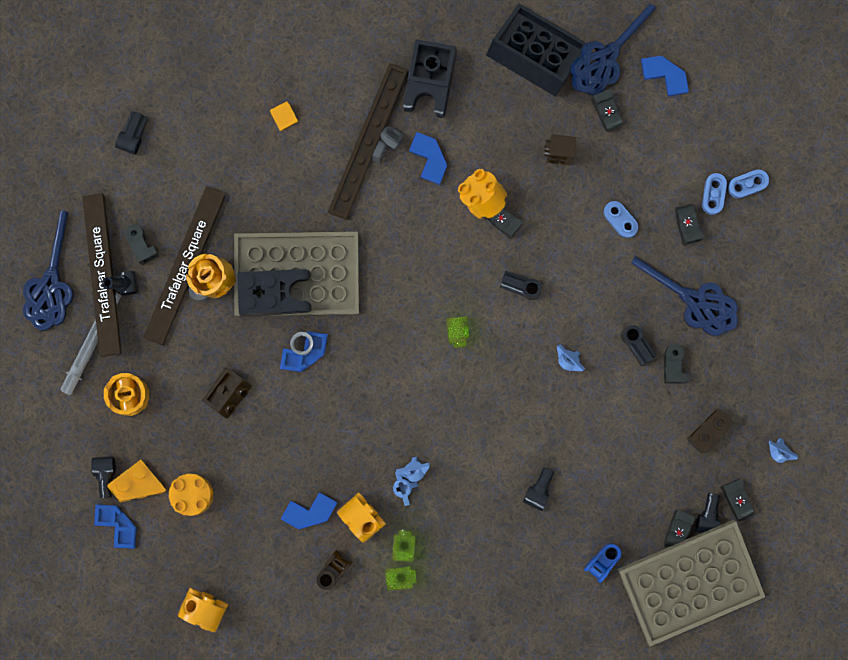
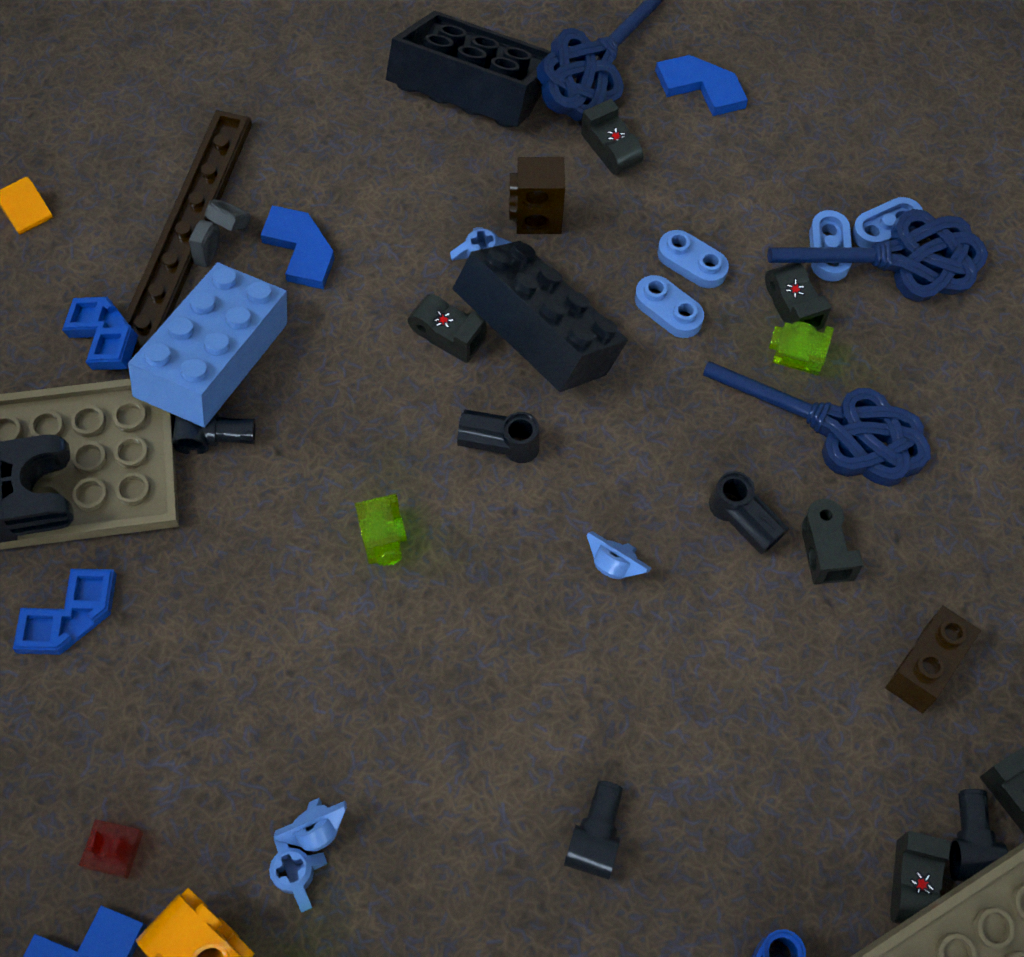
camera: 10 degrees left, 20 degrees down
(298, 335) = (49, 575): light grey piece -> none
(323, 467) = (111, 849): none -> clear red tile
(331, 206) = (112, 334): none -> blue tile
(373, 263) = (191, 436): none -> black pin
(381, 220) = (208, 344): none -> medium blue brick
(427, 81) = (289, 112): black brick -> none
(482, 194) = (403, 279): light orange brick -> none
(526, 168) = (477, 240): none -> medium blue piece
(550, 223) = (539, 314): none -> black brick
(636, 193) = (691, 259): none -> medium blue plate
(683, 255) = (800, 346): none -> clear neon green brick
(753, 199) = (919, 269): none -> dark blue piece

